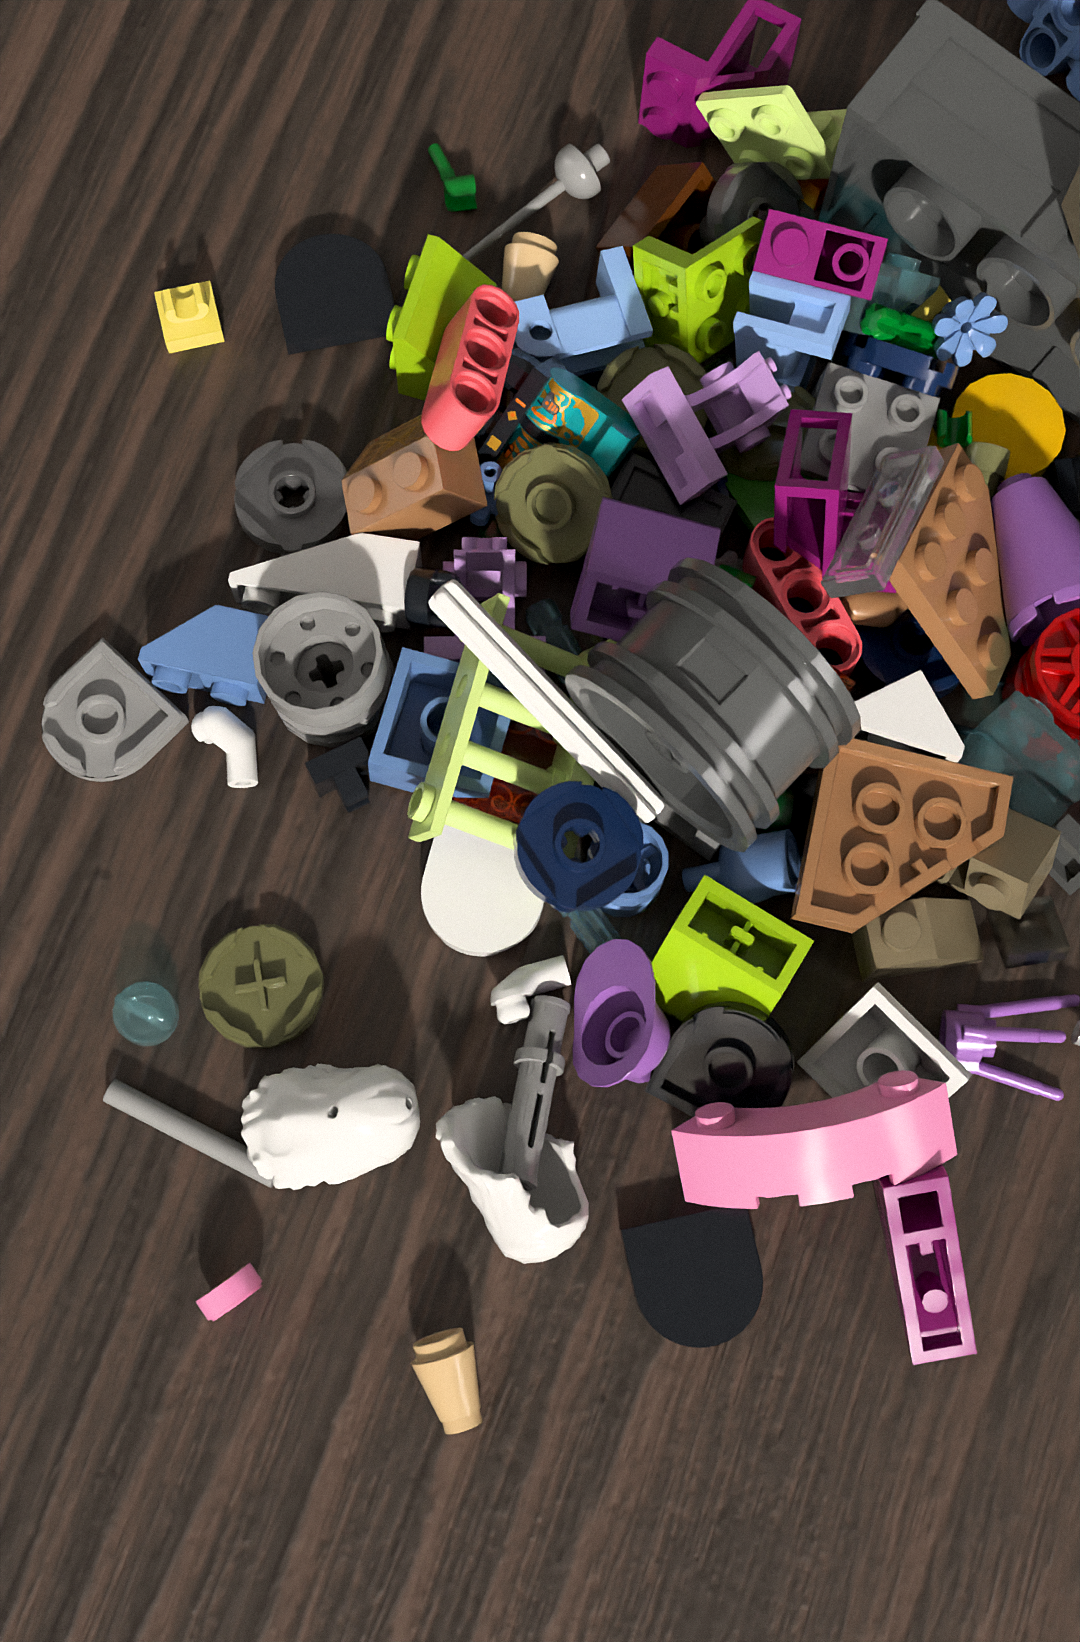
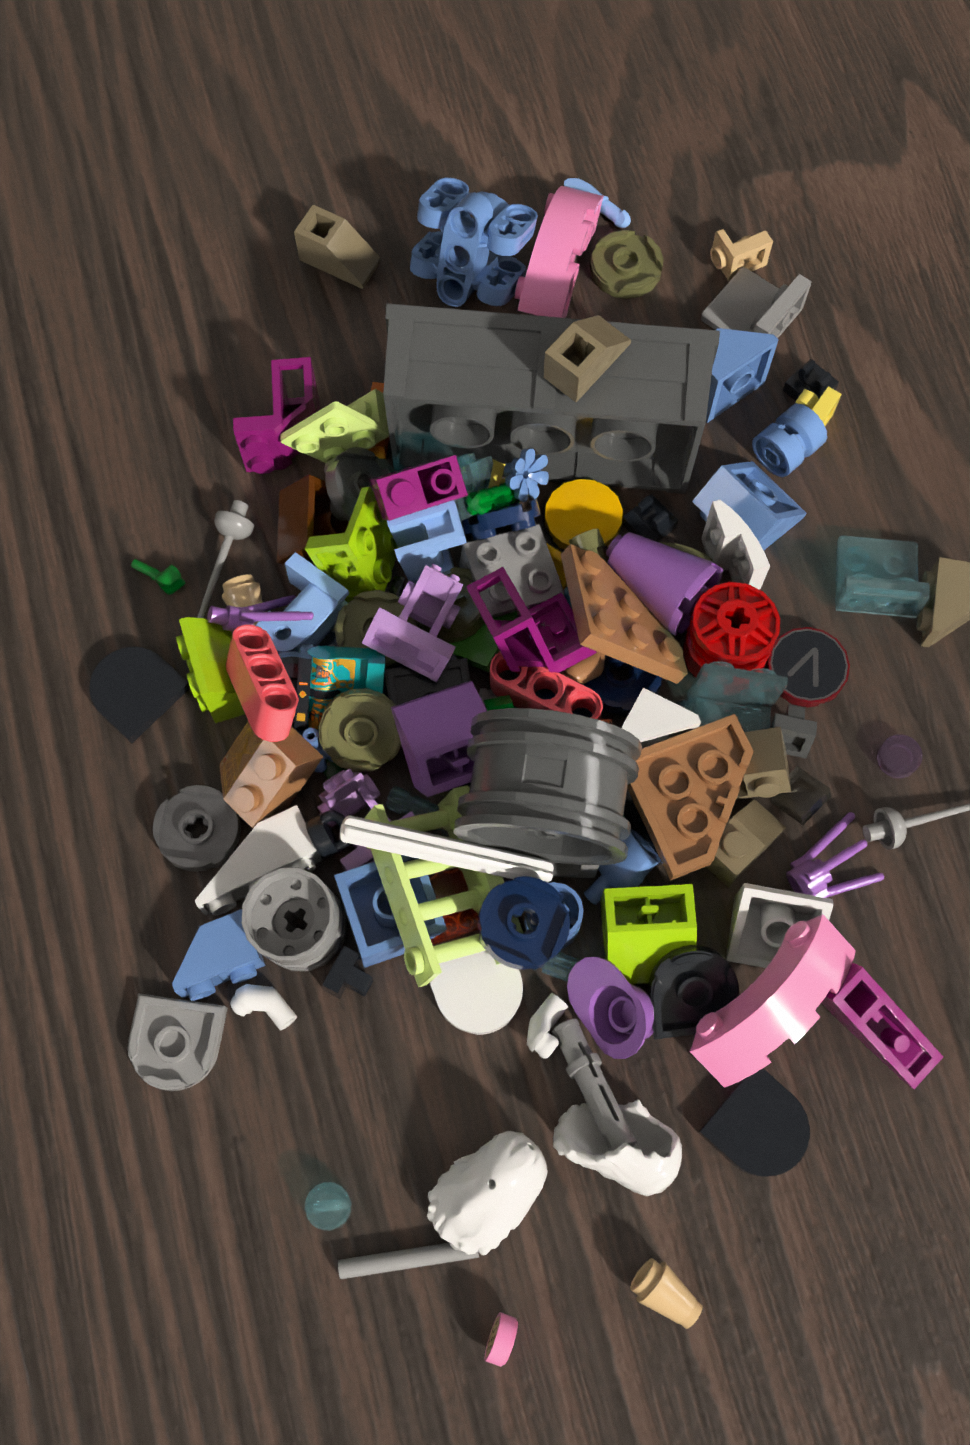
camera: 30 degrees left, 5 degrees down
(189, 316) = (54, 760): light yellow tile -> none
(261, 986) = (386, 1139): olive tile -> none
(500, 275) = (233, 616): none -> medium lavender plant
(883, 522) = (564, 618): clear tile -> none
(954, 430) = (559, 537): green hand -> none

